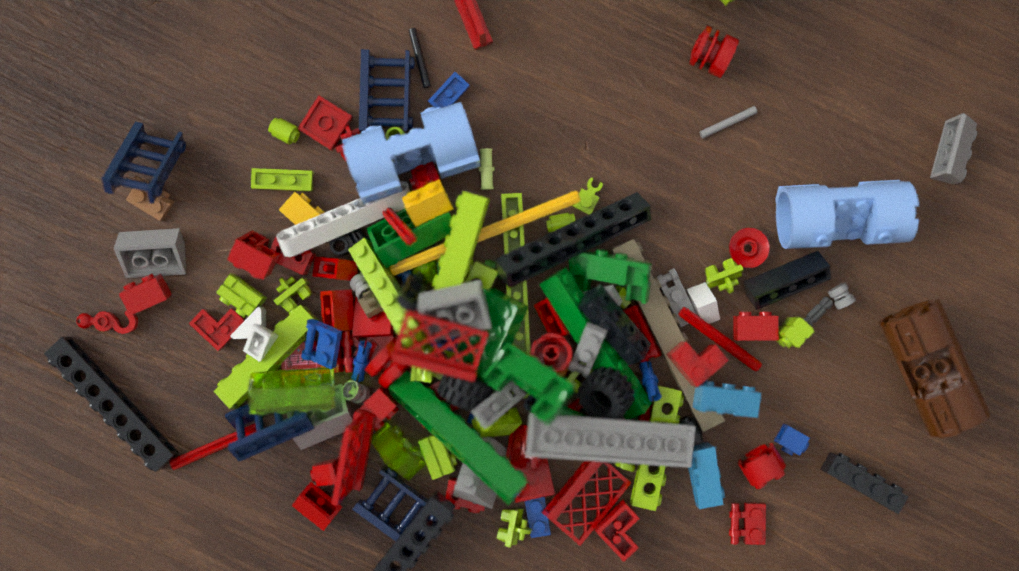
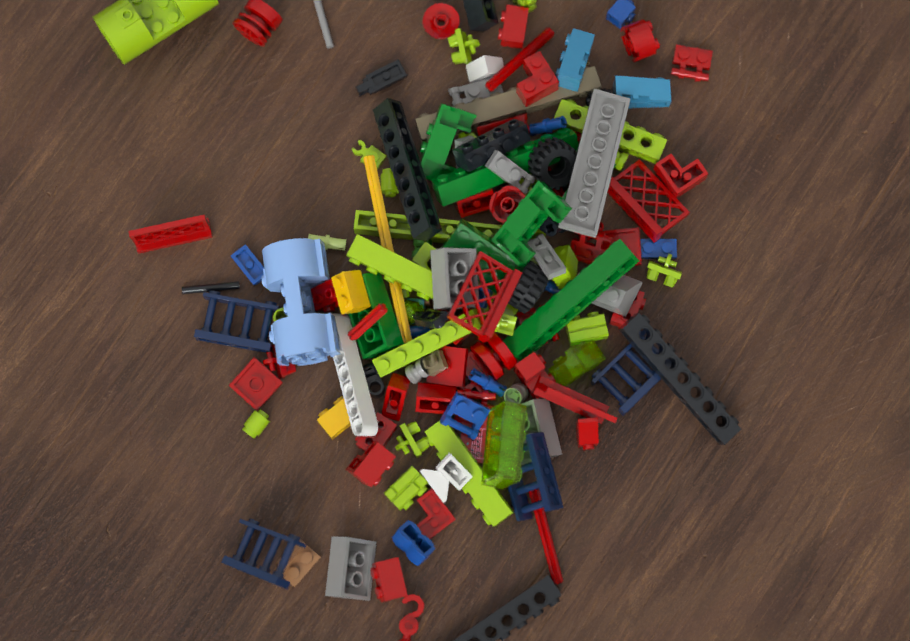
camera: 80 degrees left, 10 degrees down
(181, 316) = (413, 543): none -> blue brick
(282, 179) = (302, 433): lime plate -> none
(316, 506) = (617, 448): red brick -> none
(674, 196) = (382, 78): none -> black hinge

